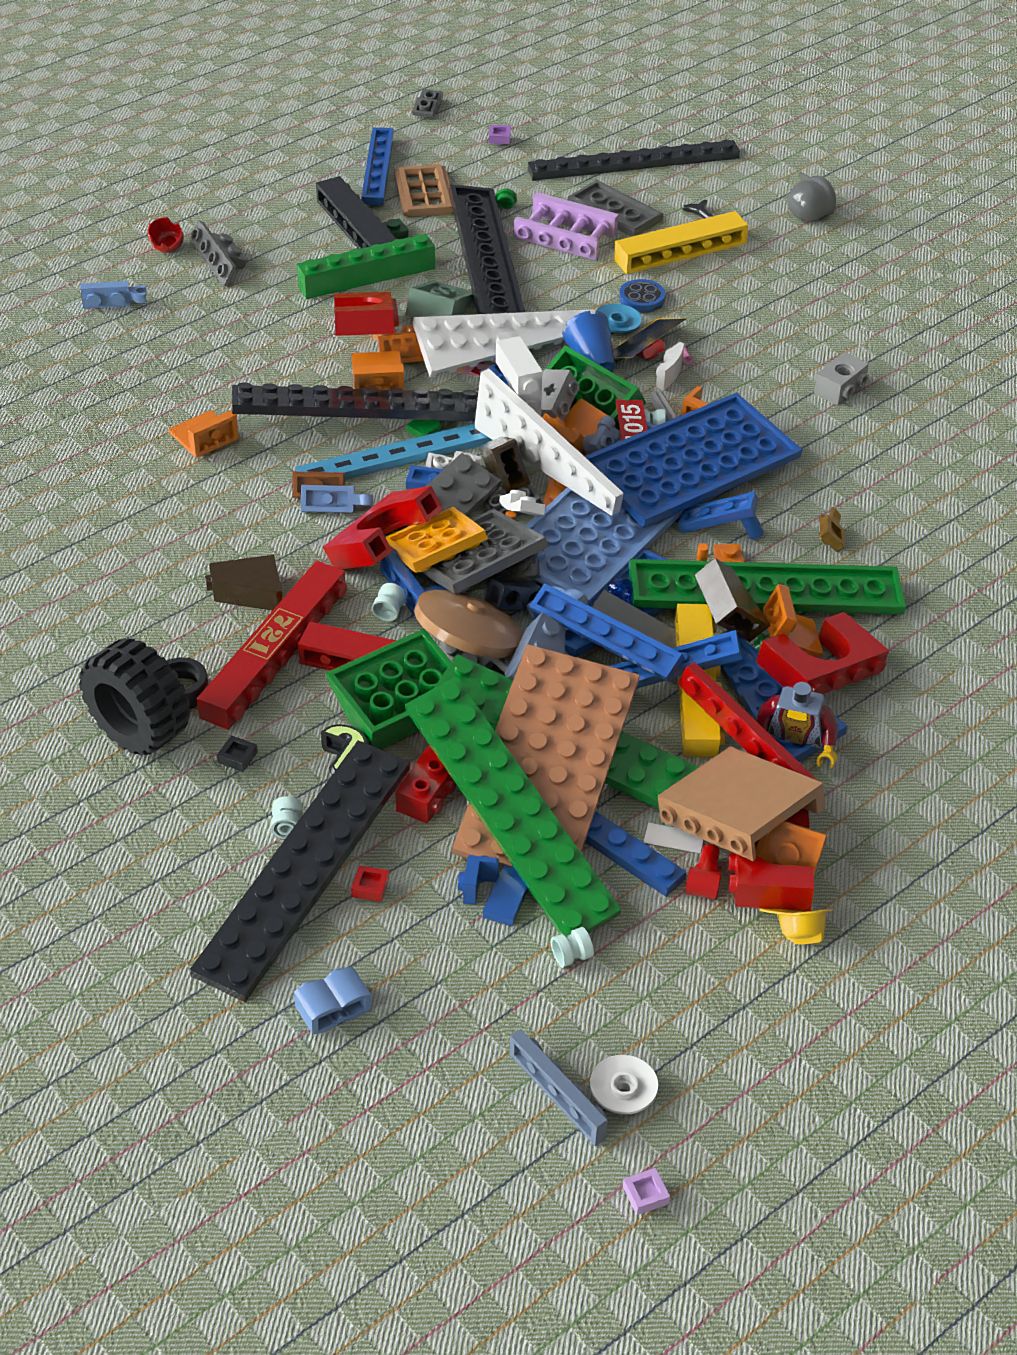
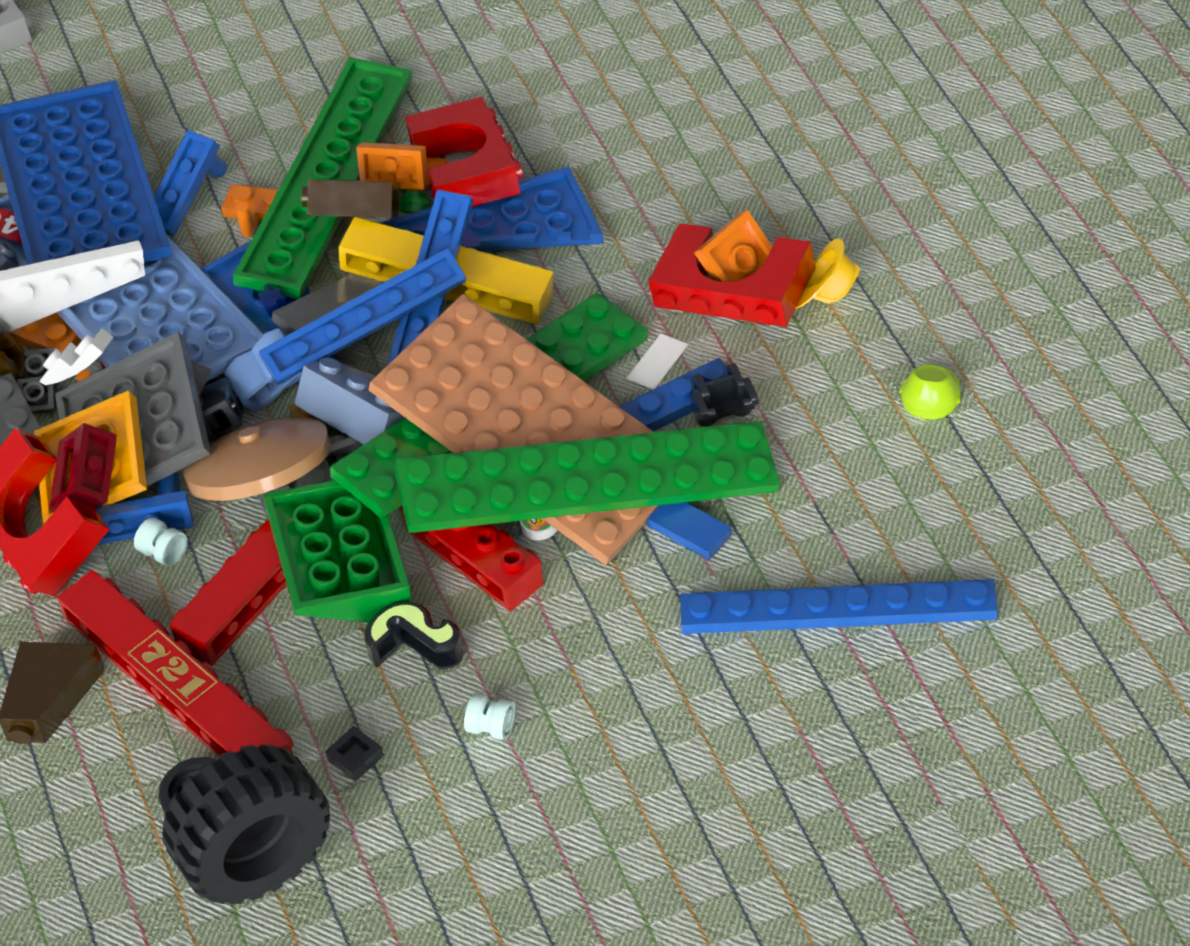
camera: 65 degrees left, 5 degrees up
(299, 871) = (588, 712): black plate -> none
(332, 1000) = (792, 720): medium blue brick -> none
(370, 883) = (627, 651): red plate -> none
(415, 533) = (90, 466): none -> dark red tile
(461, 1014) = (838, 606): none -> blue plate
(477, 869) = (659, 549): blue bracket -> none
(565, 1094) = (978, 535): sand blue plate -> none
(574, 946) = (793, 479): light aqua wheel -> none
(624, 1073) = (993, 466): white dish -> none
(638, 879) = (722, 397): none -> black piece
(646, 1191) = (1130, 492): lavender plate -> none
(704, 877) = (732, 344): red pin -> none
(713, 1025) = (930, 392): none -> lime hat
(735, 719) = (559, 241): red plate -> none
(738, 800) = (662, 272): medium nougat panel -> none
(802, 719) = (558, 194): torso -> none
(830, 530) = (258, 100): pearl gold plate -> none

